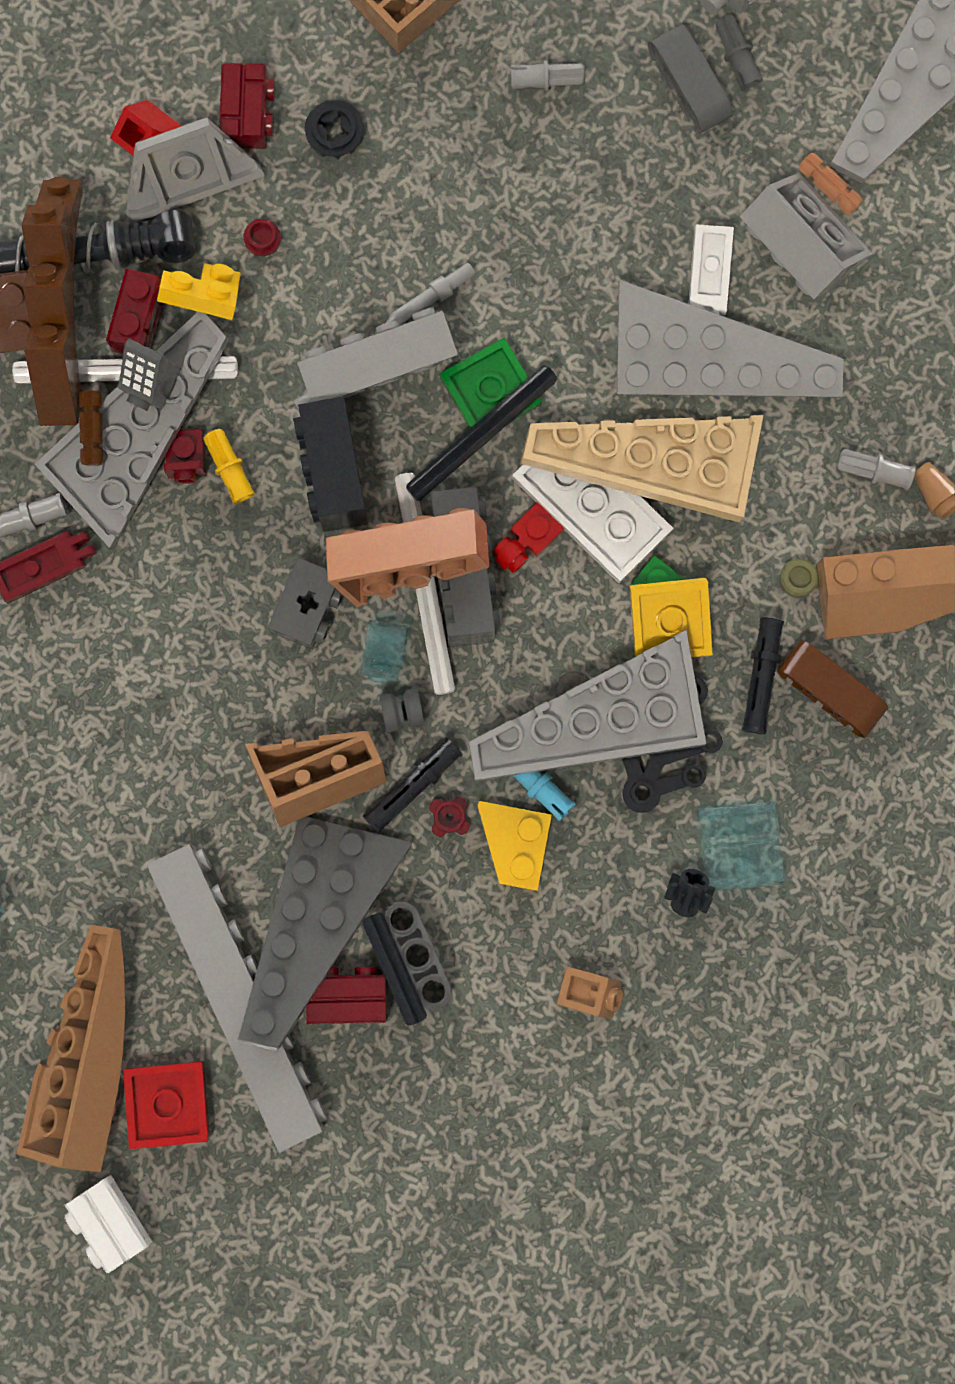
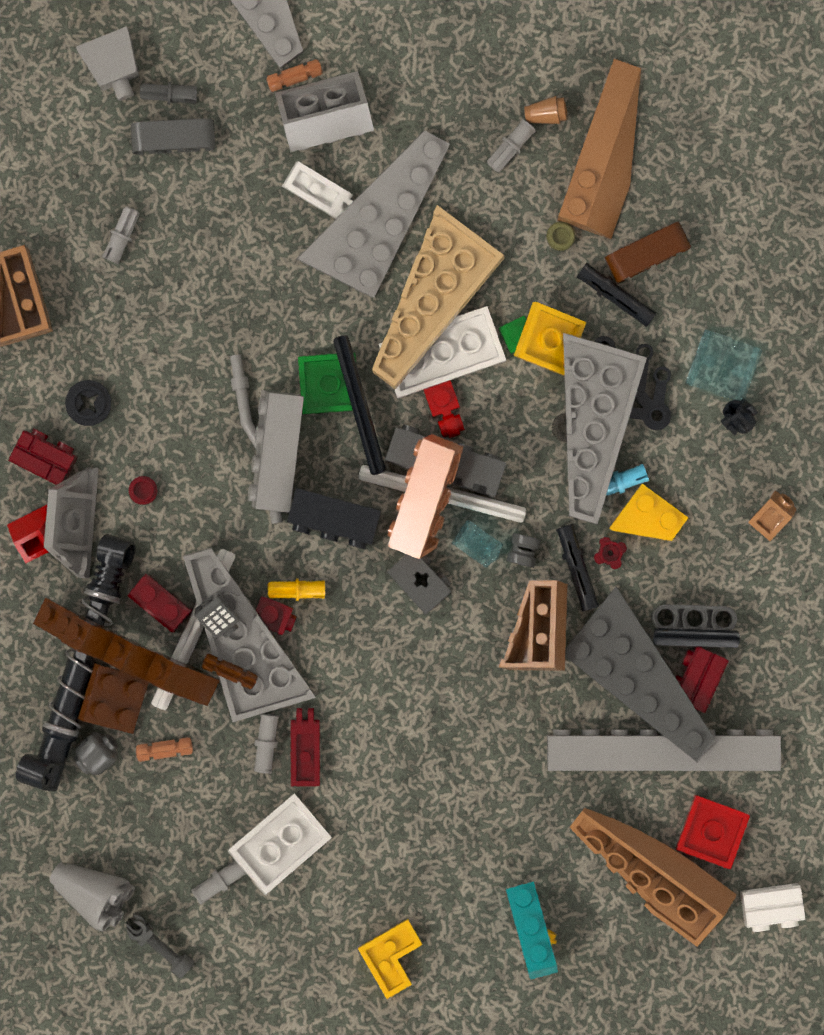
camera: 60 degrees left, 5 degrees up
(211, 295) = (173, 547): yellow plate -> none

